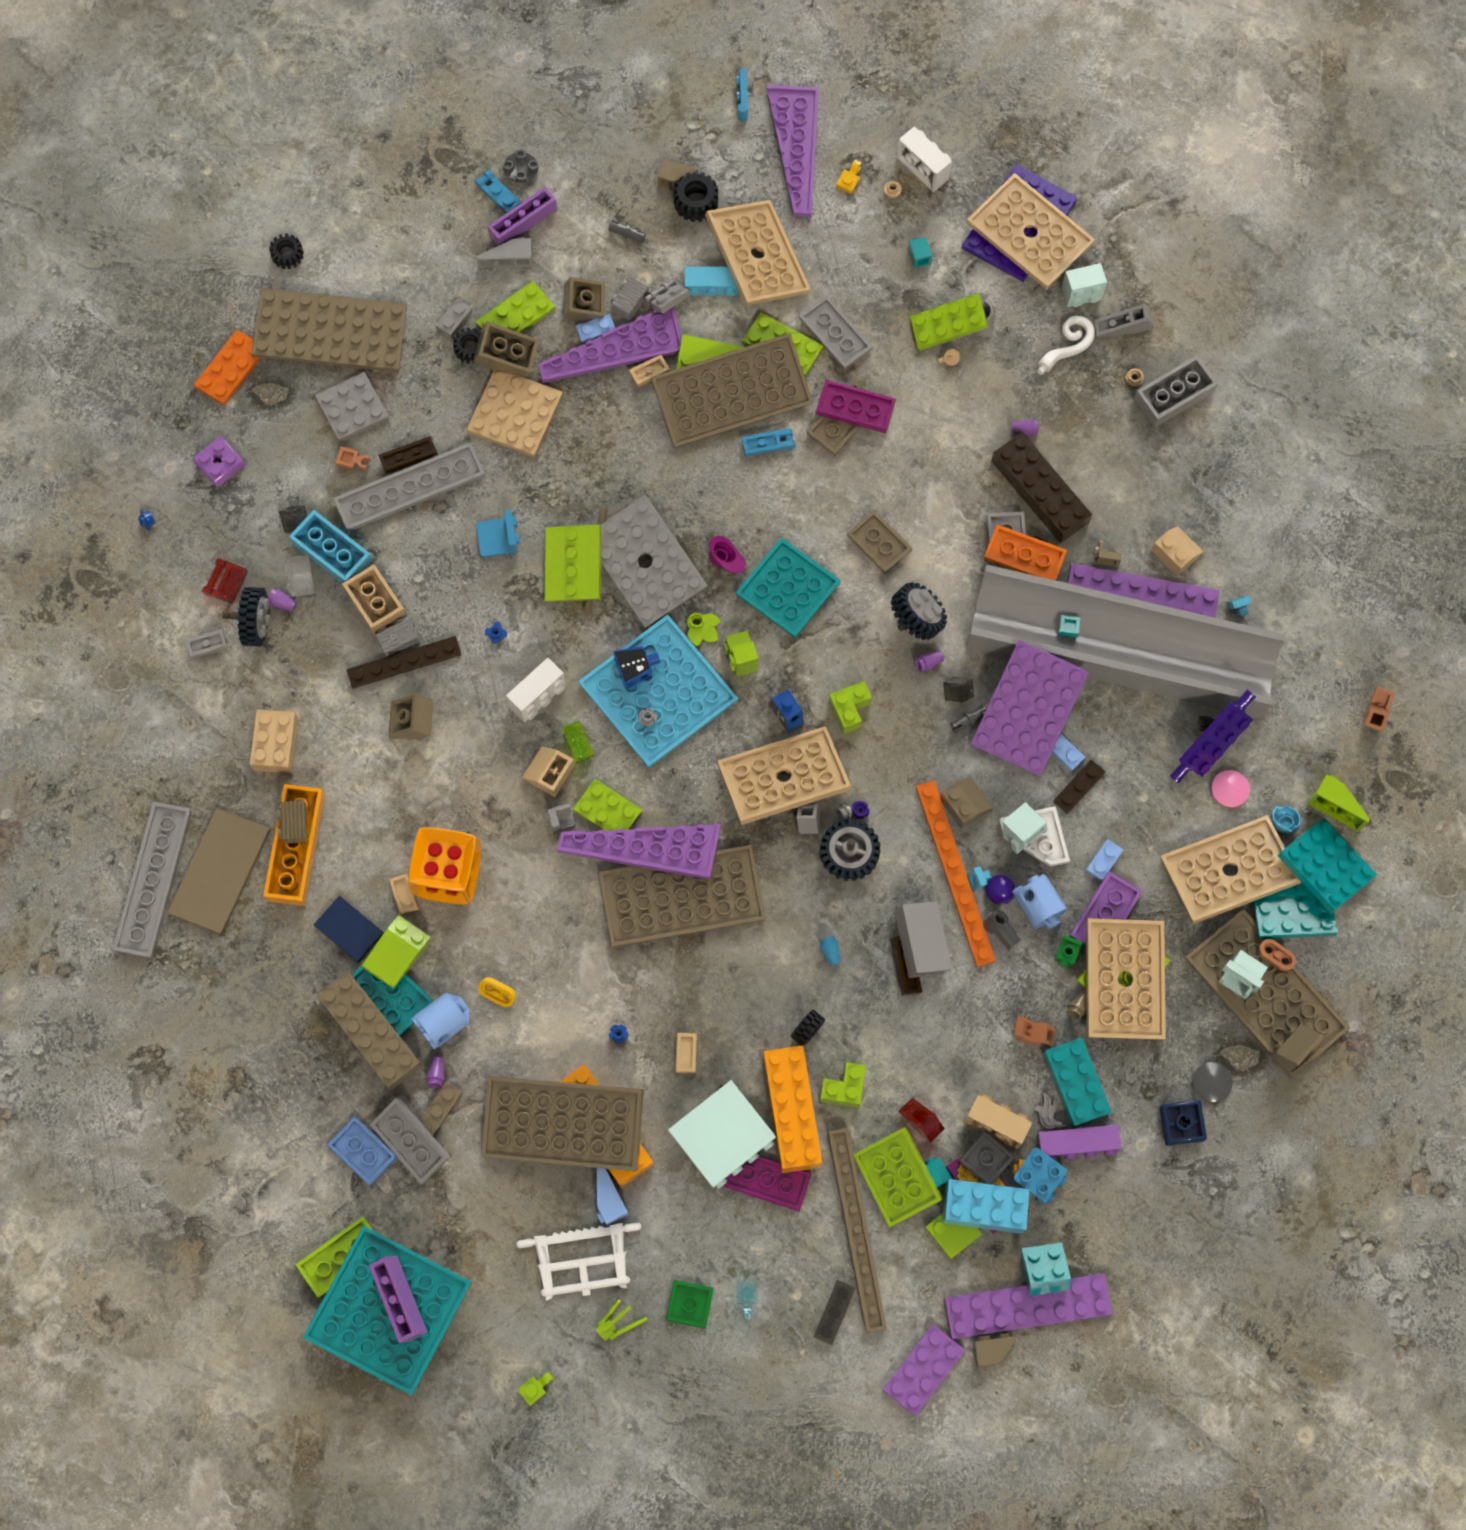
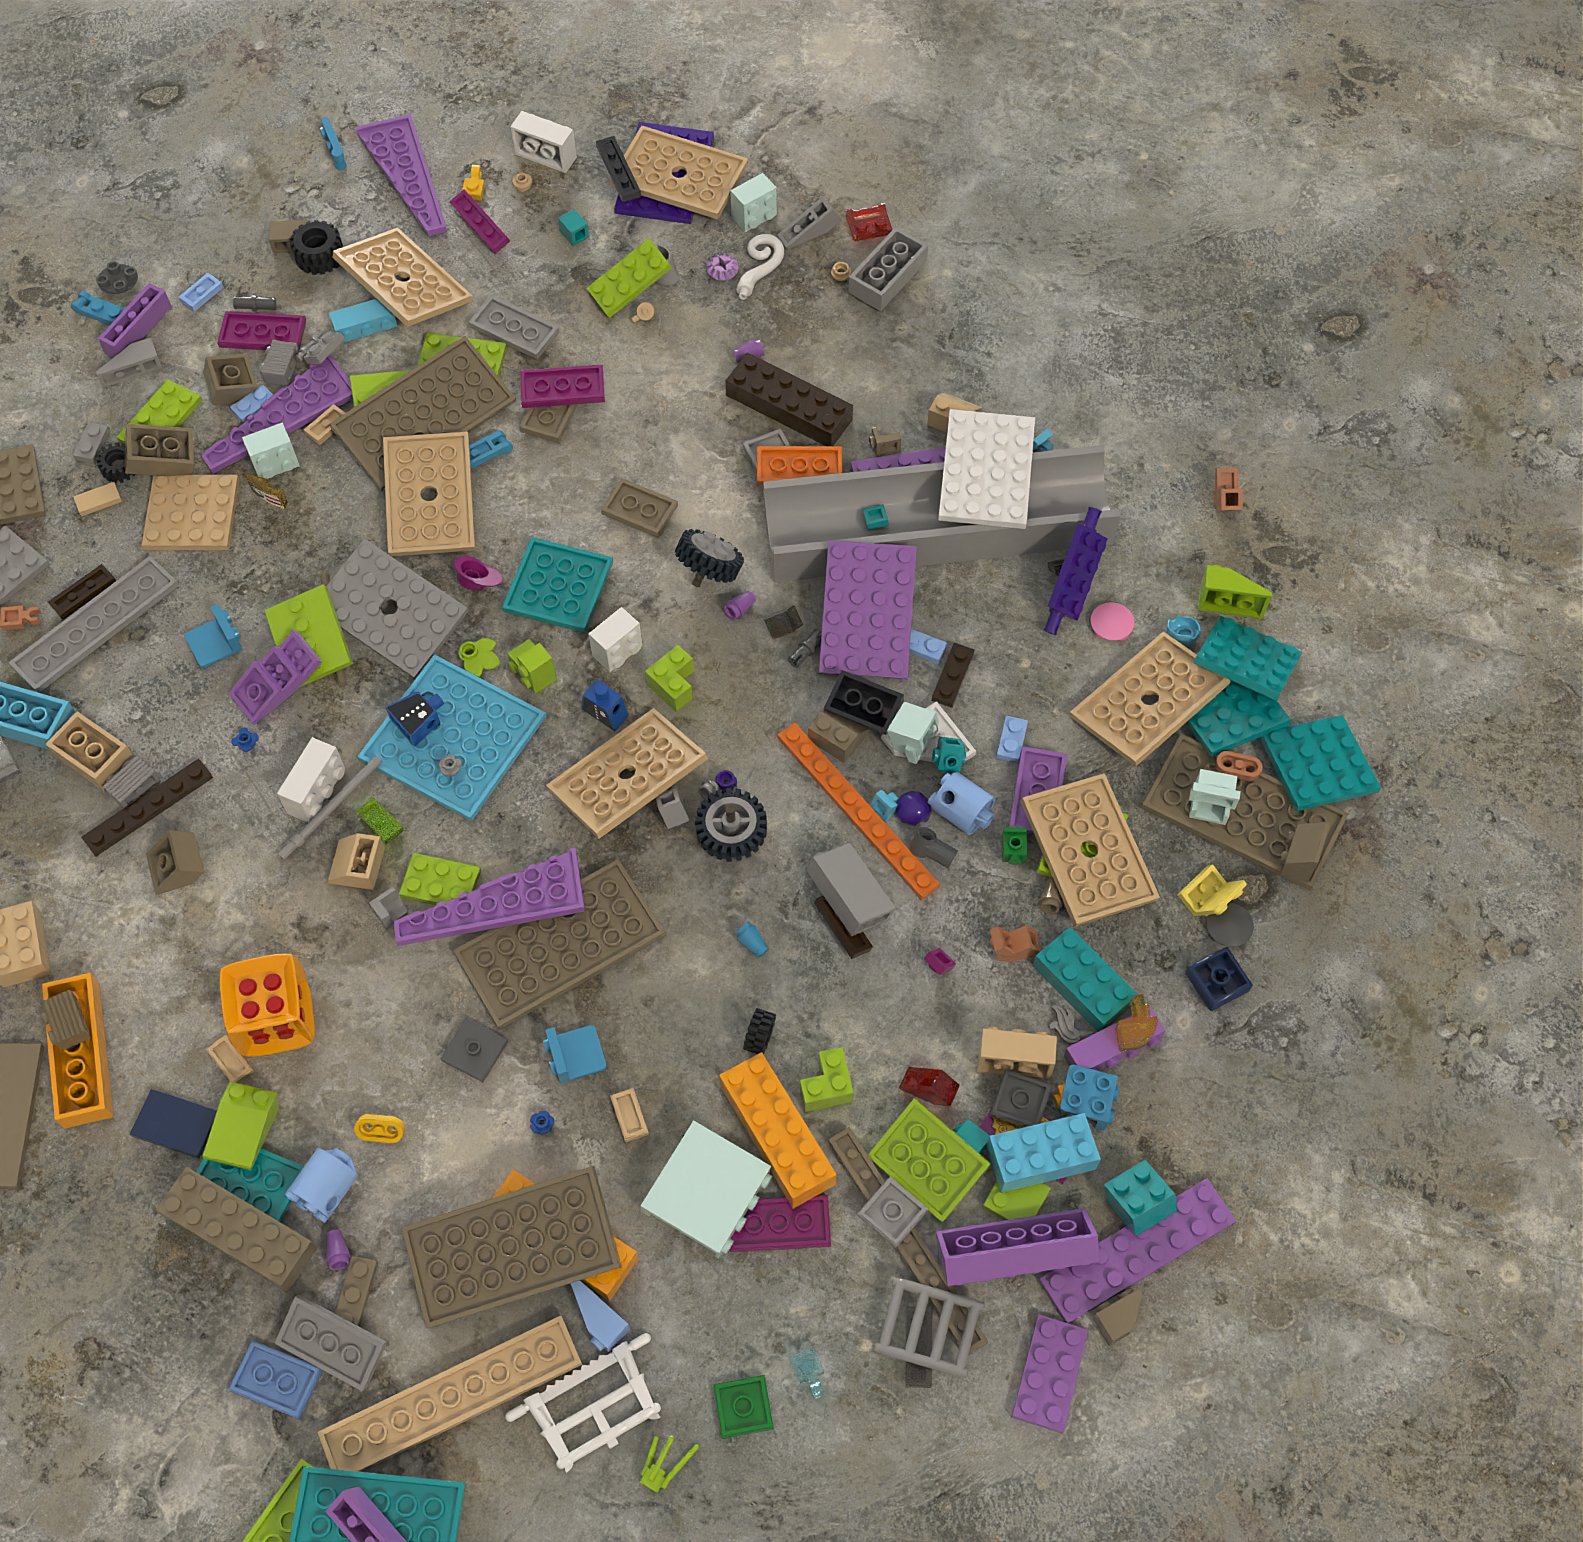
camera: 20 degrees left, 10 degrees down
(444, 373) = (97, 499): none -> tan tile
(482, 1214) = (450, 1398): none -> tan plate
(510, 734) = (298, 839): none -> light grey bar
(536, 588) = (275, 677): none -> medium lavender slope
(579, 414) = (262, 489): none -> clear yellow slope
(585, 205) = (201, 292): none -> light blue plate
(587, 956) = (474, 1050): none -> dark grey plate
(595, 383) = (271, 451): none -> light aqua brick
(623, 259) = (258, 330): none -> magenta tile
(662, 989) = (574, 1053): none -> dark azure bracket
(708, 439) = (423, 463): none -> tan plate
(816, 657) = (615, 639): none -> white brick
(841, 217) = (479, 221): none -> magenta plate
(841, 1327) = (909, 1354): none -> light grey bar
(854, 1206) = (892, 1212): none -> light grey tile
(936, 1269) = (1017, 1247): none -> medium lavender brick
(969, 1024) = (939, 961): none -> magenta plate
(977, 212) = (618, 169): none -> black plate
(995, 787) = (864, 702): none -> black slope
(1027, 338) = (717, 271): none -> lavender gear
(1045, 858) = (949, 755): none -> teal brick
(1099, 1142) = (1136, 1032): none -> clear yellow brick
(1177, 621) = (987, 469): none -> white plate
(1178, 341) = (869, 227): none -> clear red plate
(1207, 1051) = (1210, 892): none -> light yellow bracket
(1346, 976) = (1320, 763): none -> teal plate

